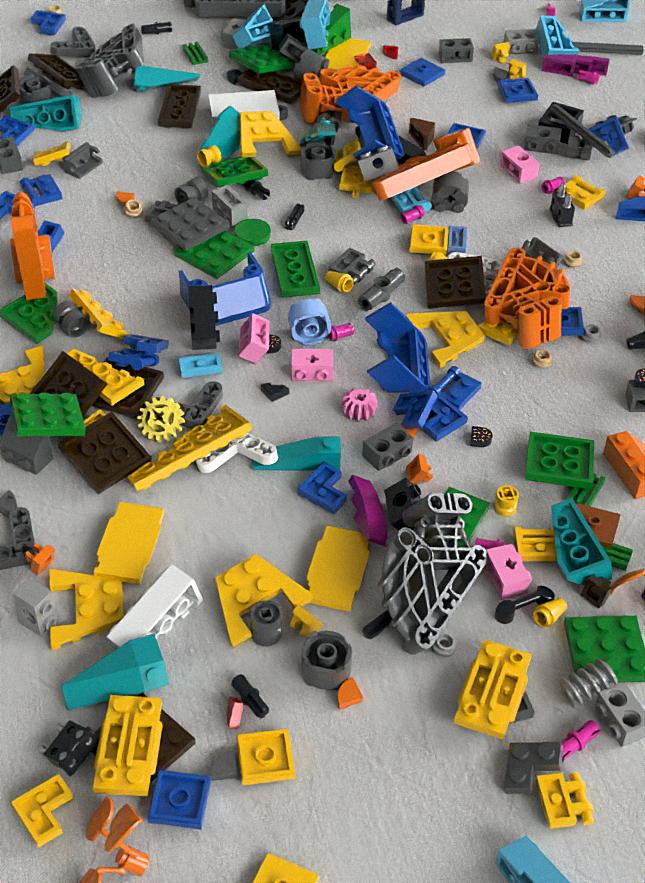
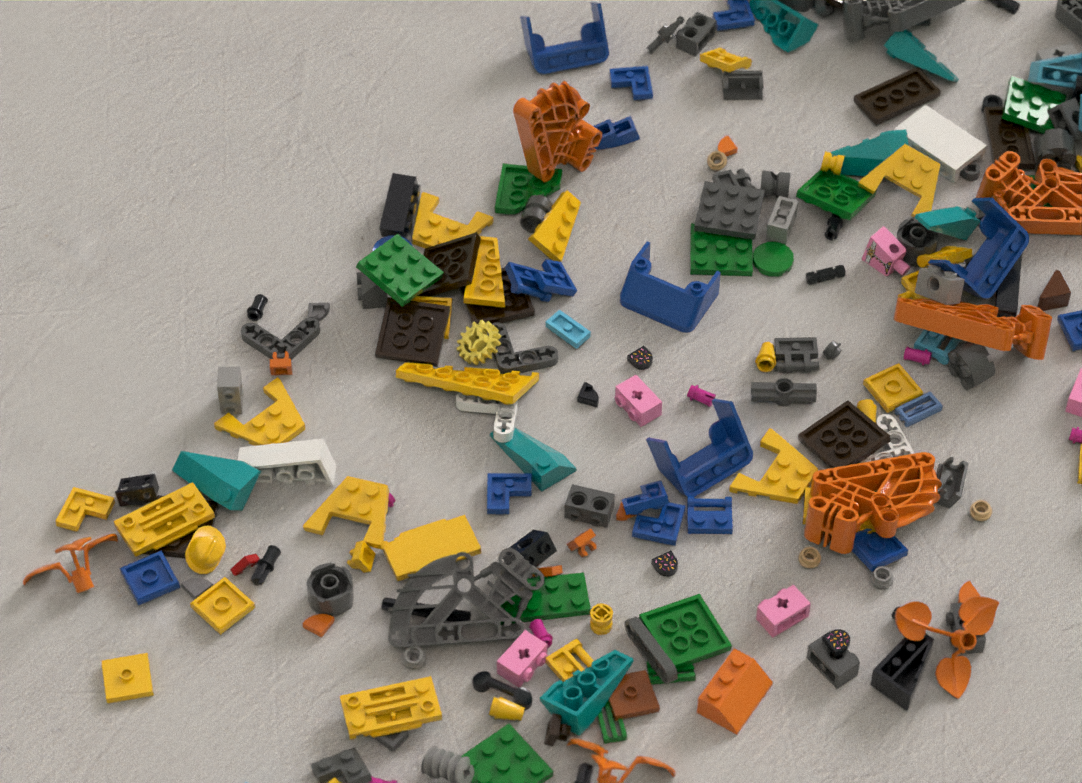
camera: 55 degrees right, 5 degrees up
(46, 187) = (685, 88): blue plate -> none
(129, 542) = (343, 405): yellow piece -> none
(193, 732) = (205, 550): none -> yellow piece
(198, 53) = (1007, 47): green tile -> none
(203, 317) = (609, 293): black wedge -> none
(254, 338) = (627, 342): bright pink brick -> none
(266, 623) = (334, 533): dark grey wheel -> none
(295, 269) = (751, 317): green plate -> none
(309, 321) = (681, 366): light blue brick -> none
(313, 178) = (885, 253): none -> bright pink torso
(359, 404) = (621, 459): bright pink gear -> none
(366, 247) = (832, 350): none -> dark grey plate
(369, 512) = (503, 532): magenta slope -> none
(562, 207) = (1045, 462): black piece -> none
(564, 489) = (651, 650): none -> dark grey beam
(582, 397) = (783, 610): none -> bright pink brick

